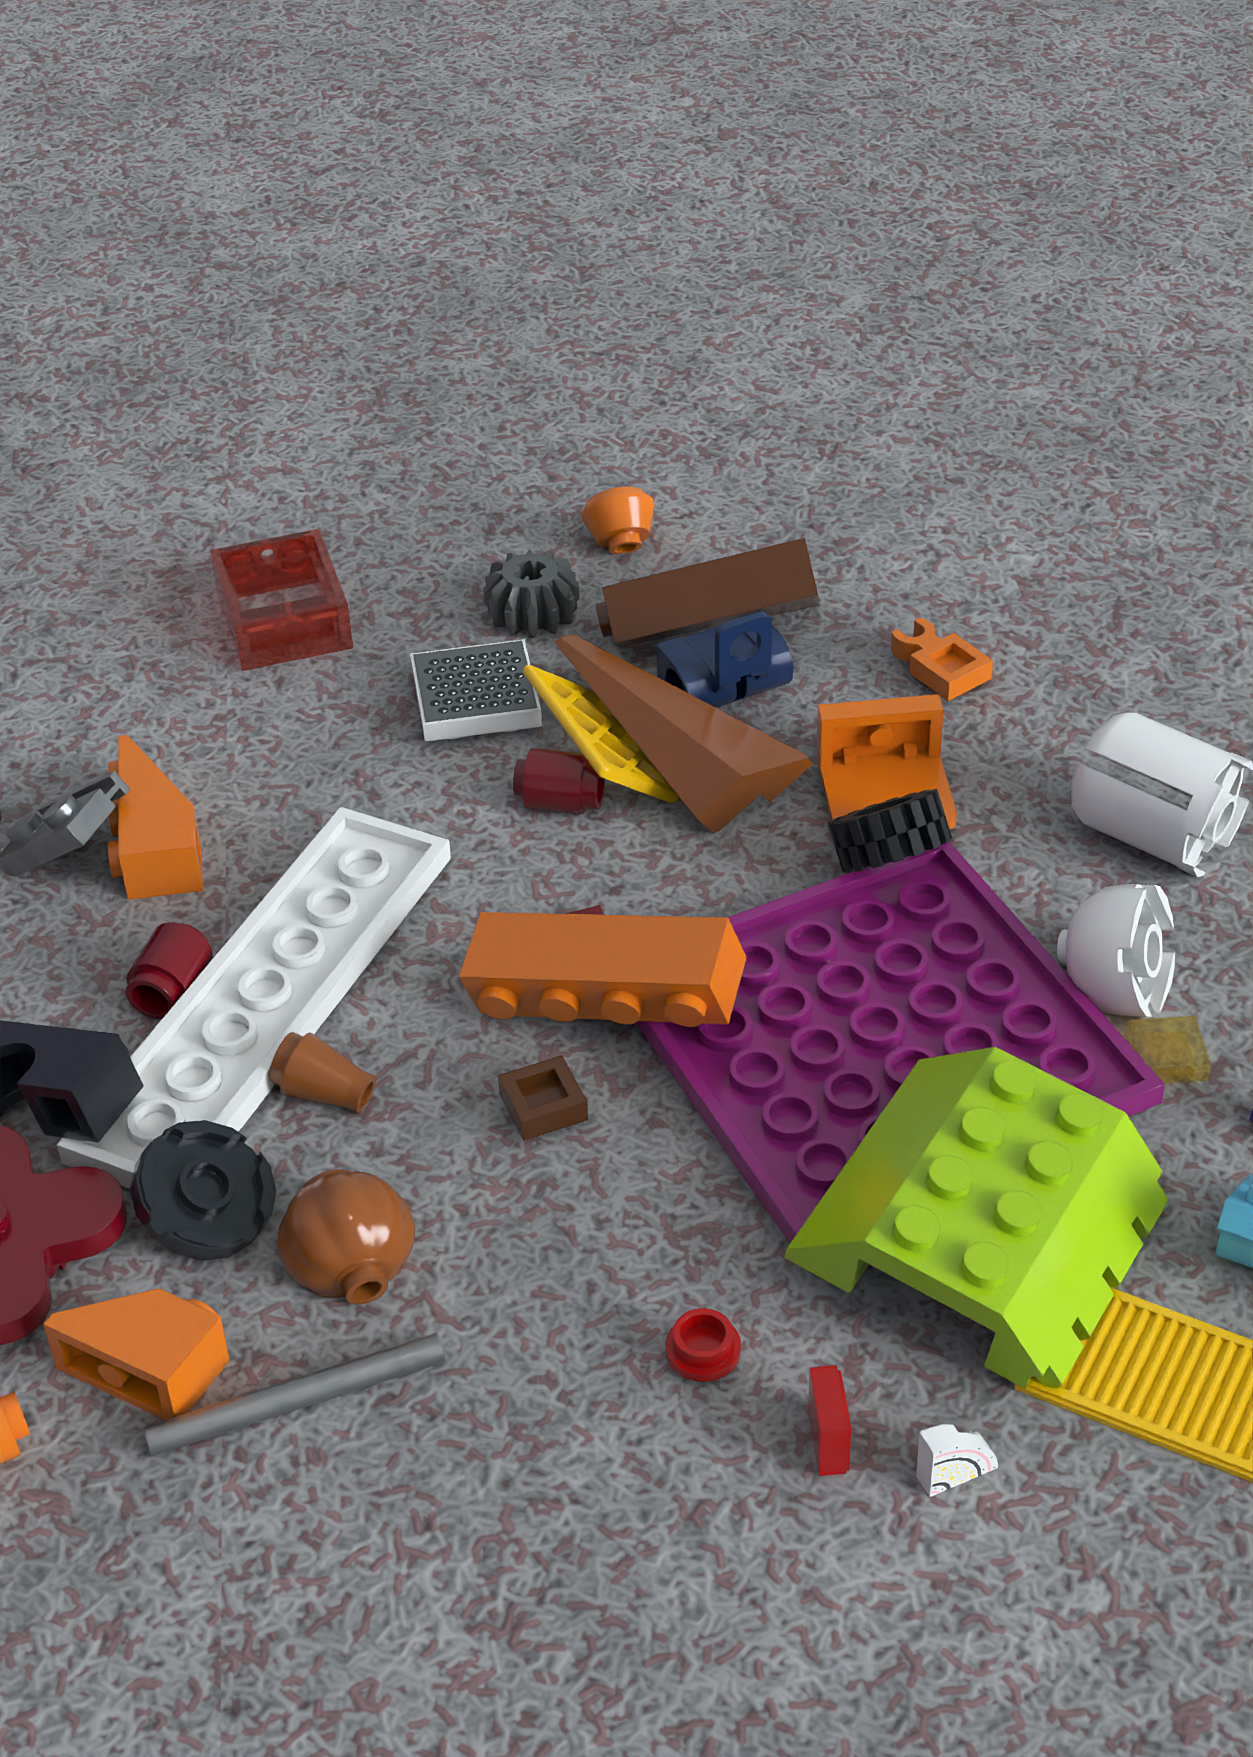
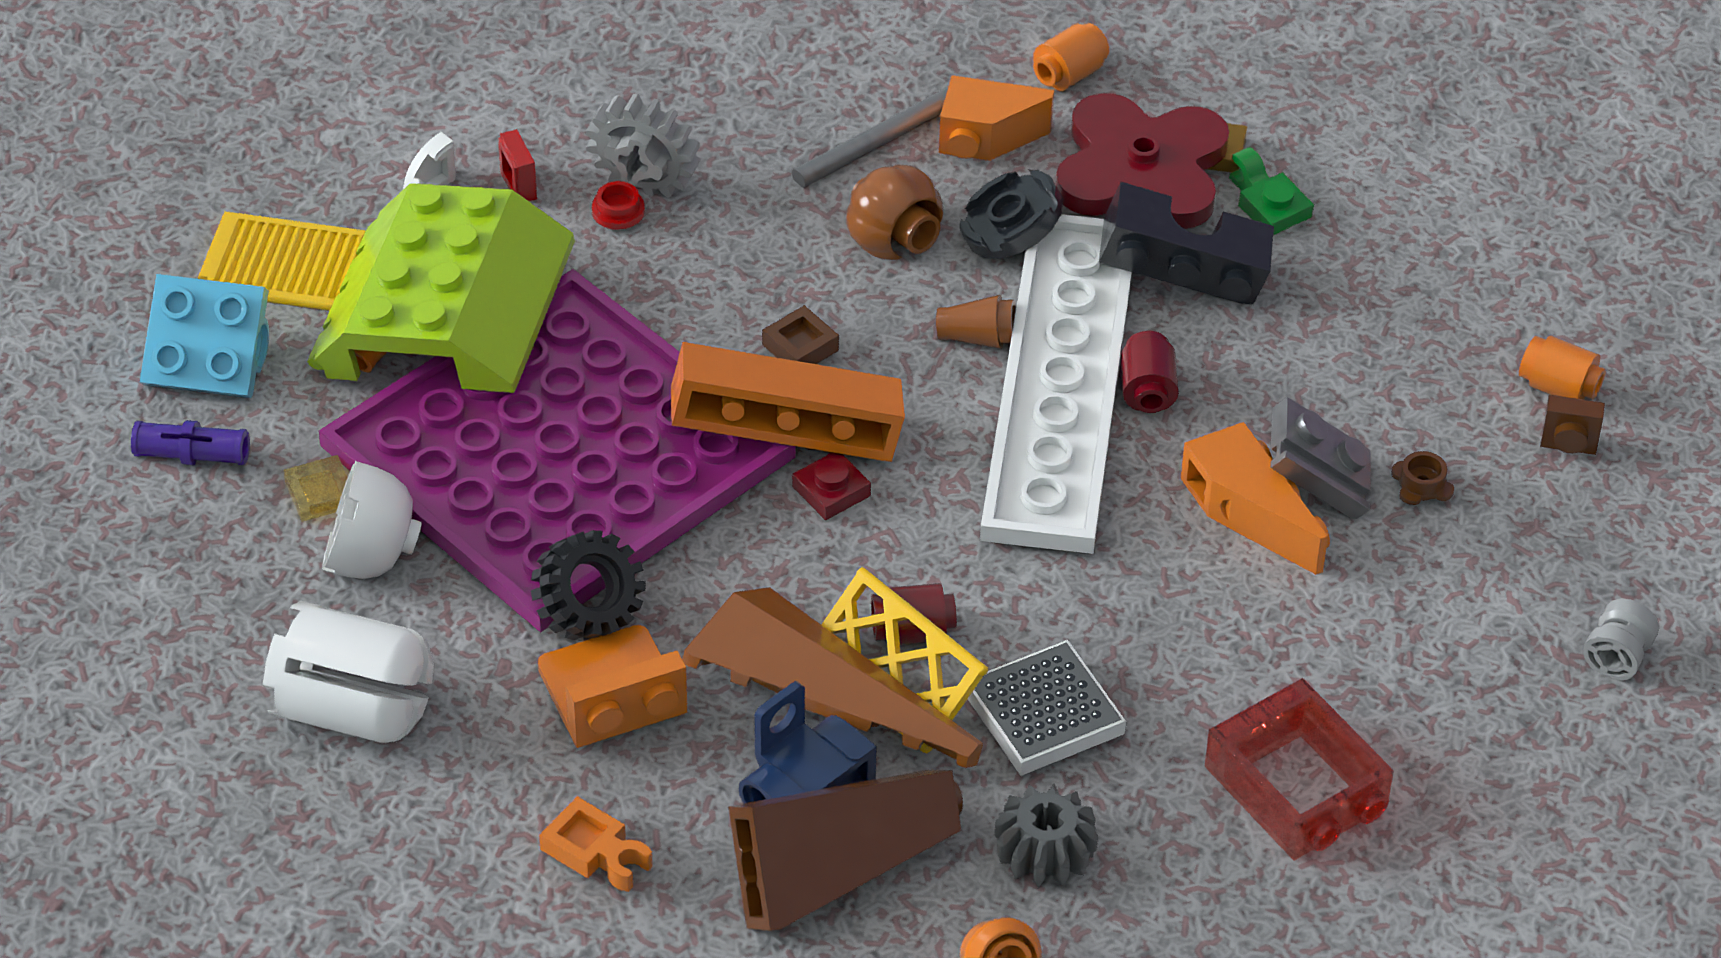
camera: 160 degrees right, 5 degrees up
(650, 1354) = (643, 145): none -> light grey gear

